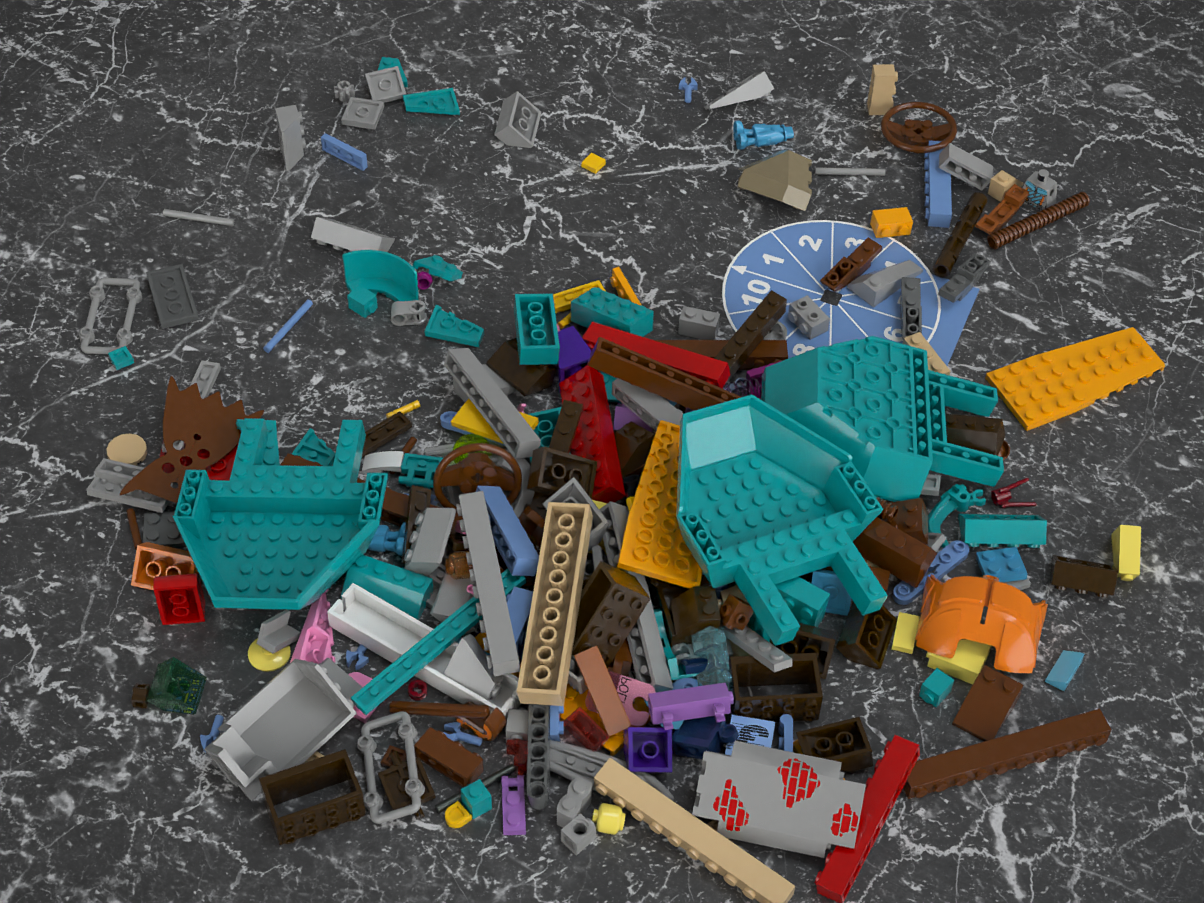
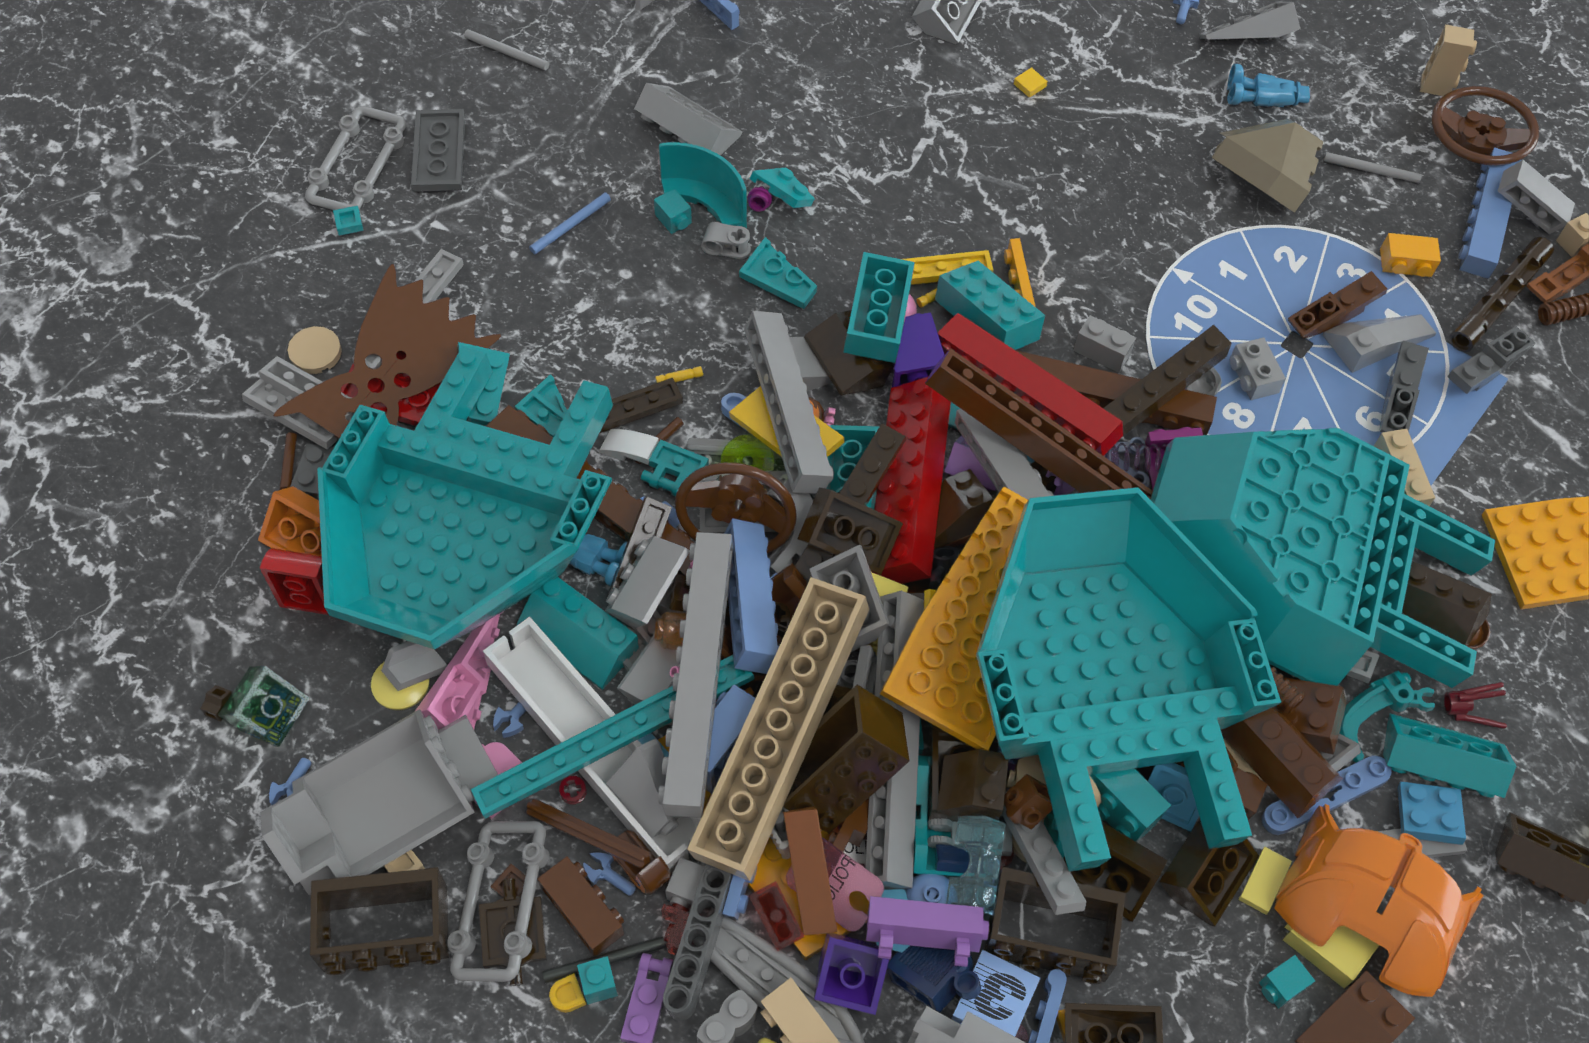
camera: 15 degrees right, 10 degrees up
(1064, 669) = (1482, 1000): medium azure slope -> none

